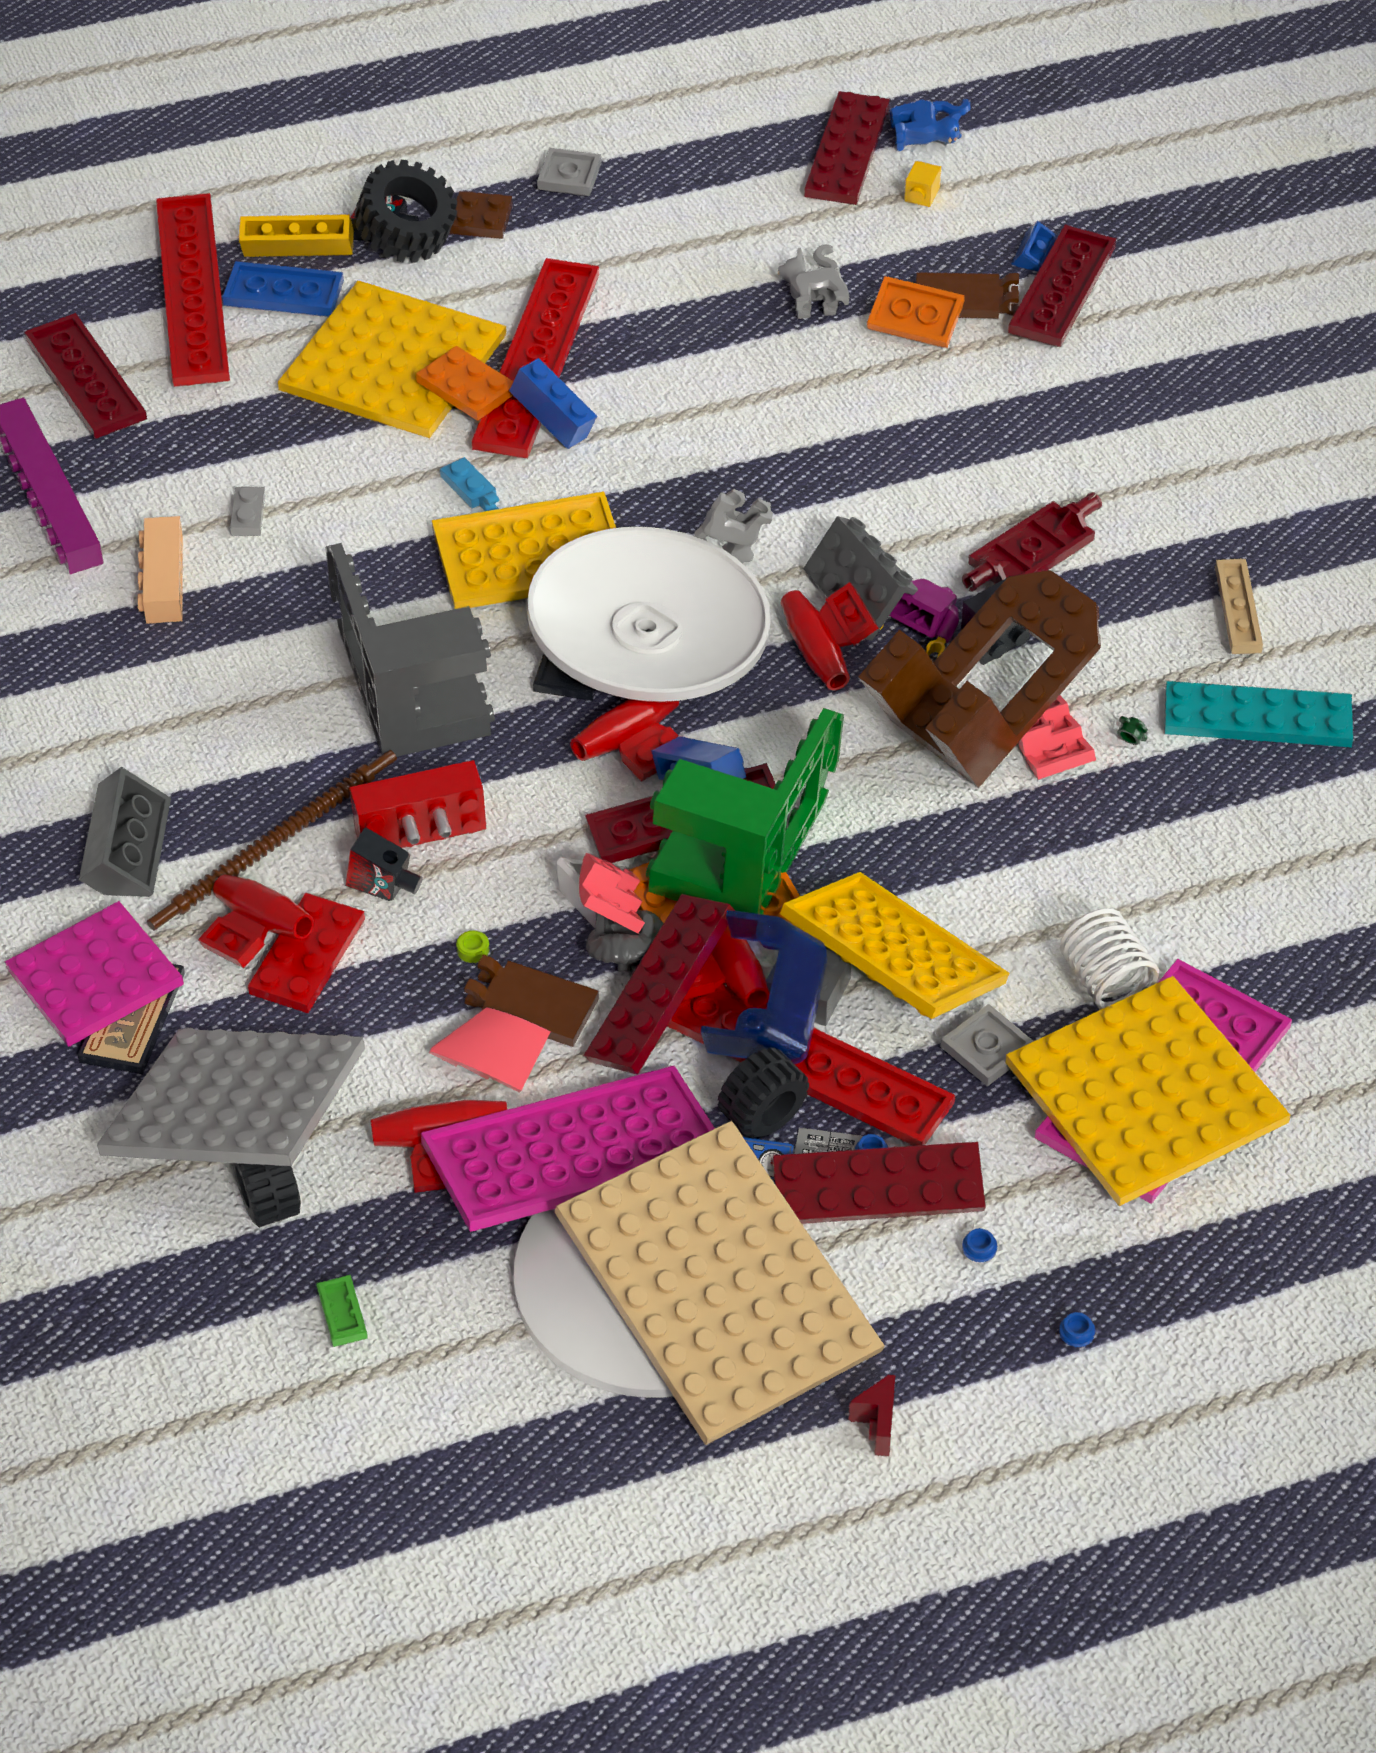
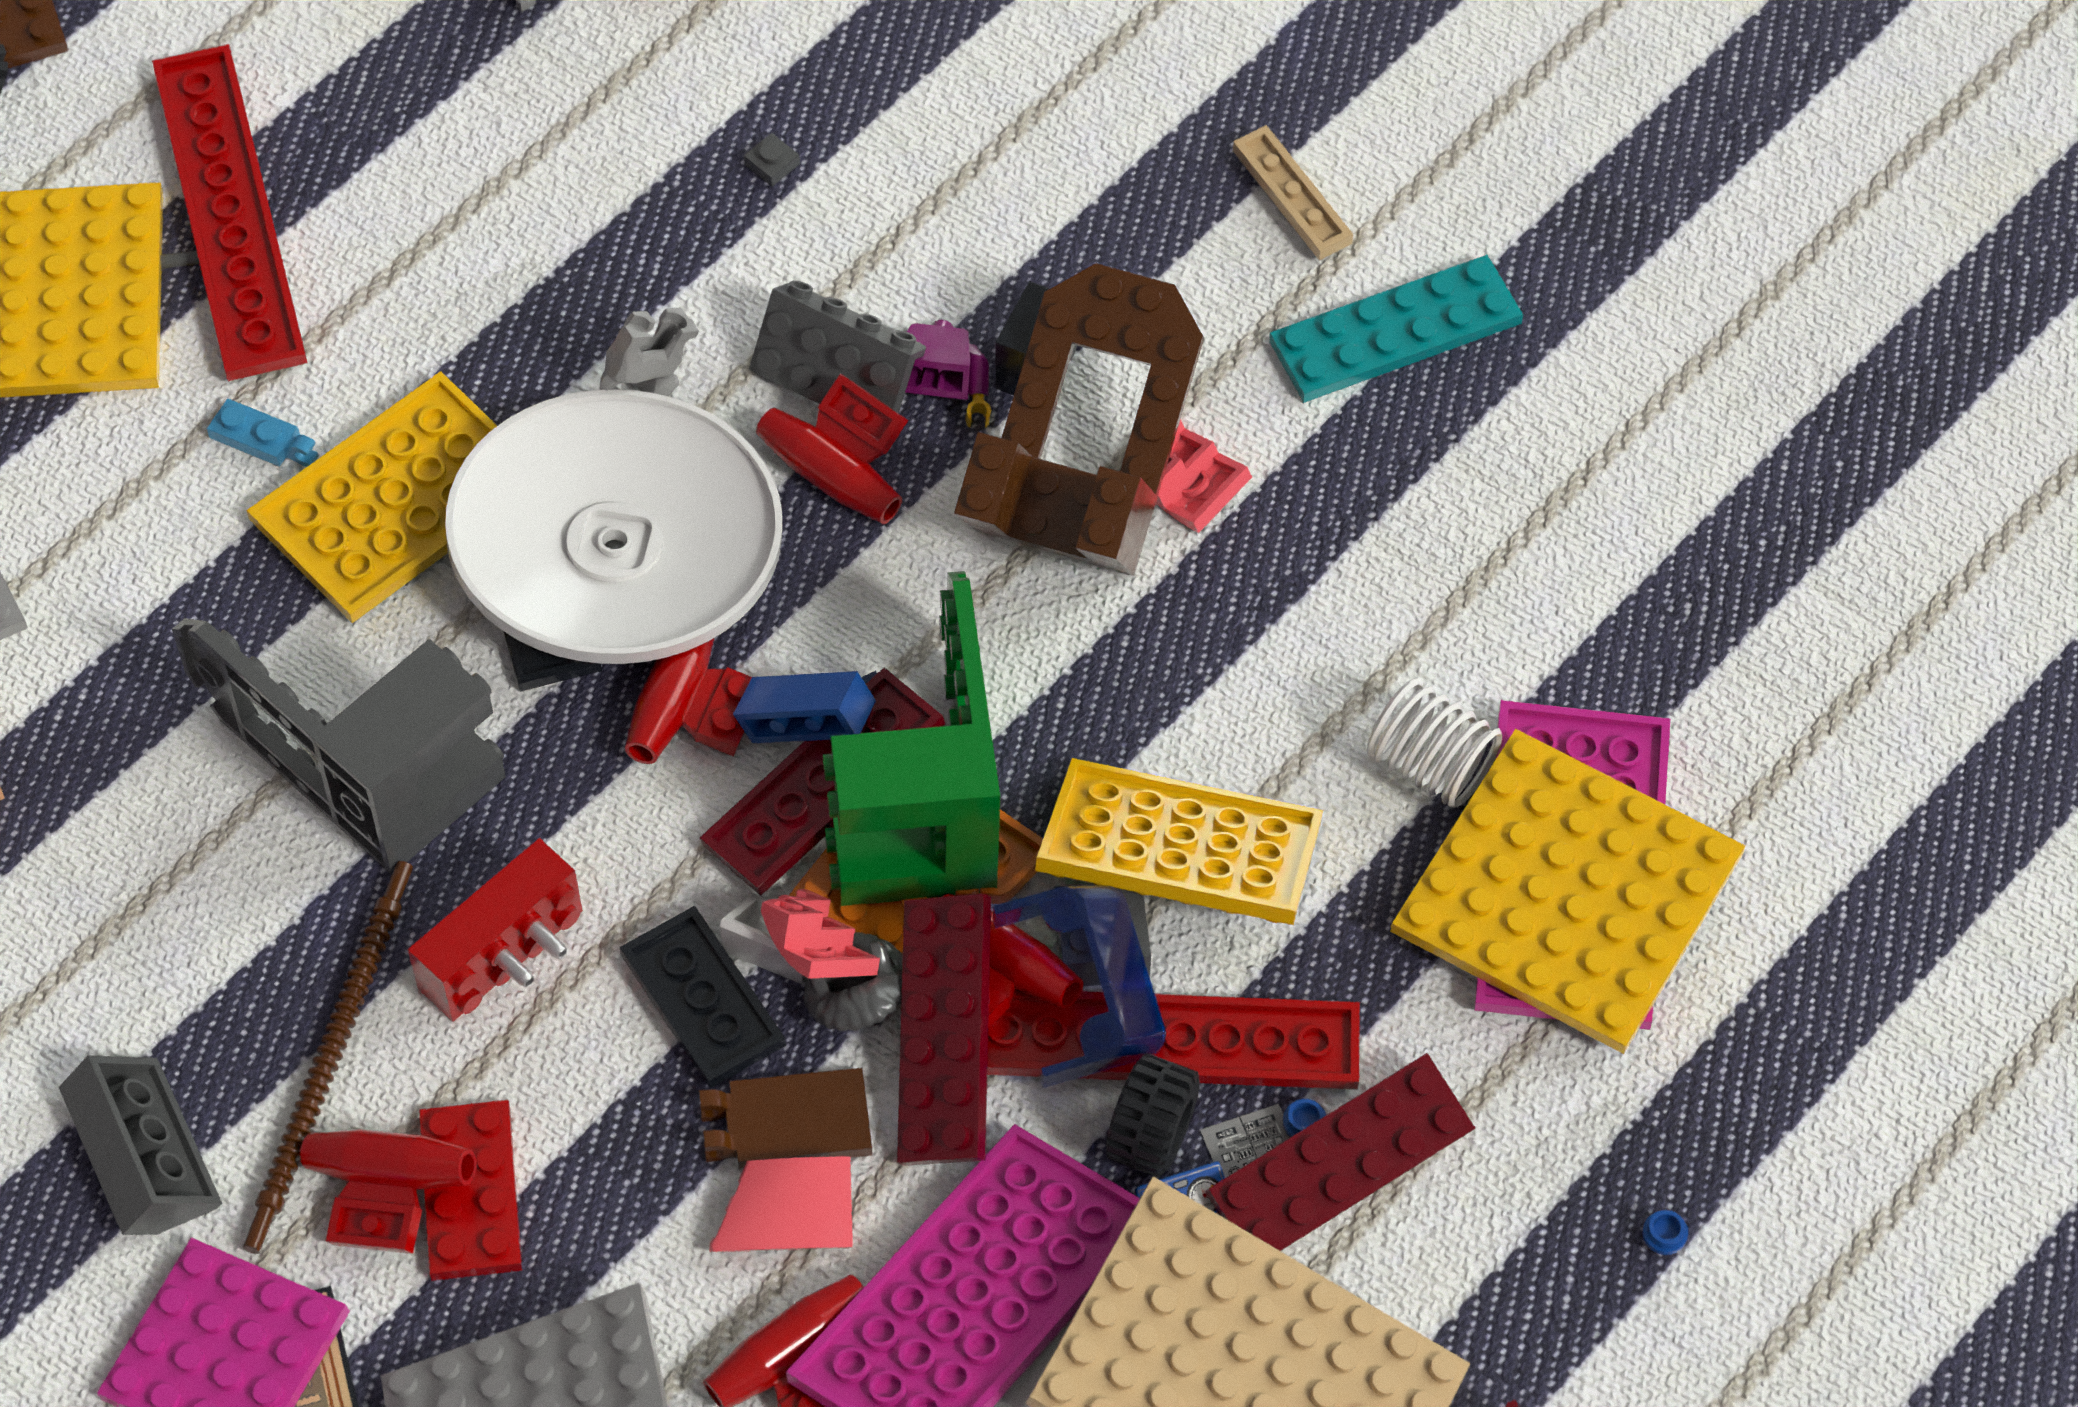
camera: 30 degrees left, 10 degrees up
(380, 867) = (499, 1033): black torso -> none
(466, 382) = (168, 291): orange plate -> none
(472, 946) = (669, 1081): lime tile -> none
(525, 906) = (702, 996): none -> black plate
(553, 403) = (303, 275): blue brick -> none
(900, 458) = (771, 159): none -> dark grey plate
(979, 1245) = (1497, 1181): blue plate -> none
(983, 1043) = (1353, 916): light grey plate -> none
(1034, 543) = (1007, 216): dark red plate -> none
(1132, 730) = (1271, 418): dark green plate -> none

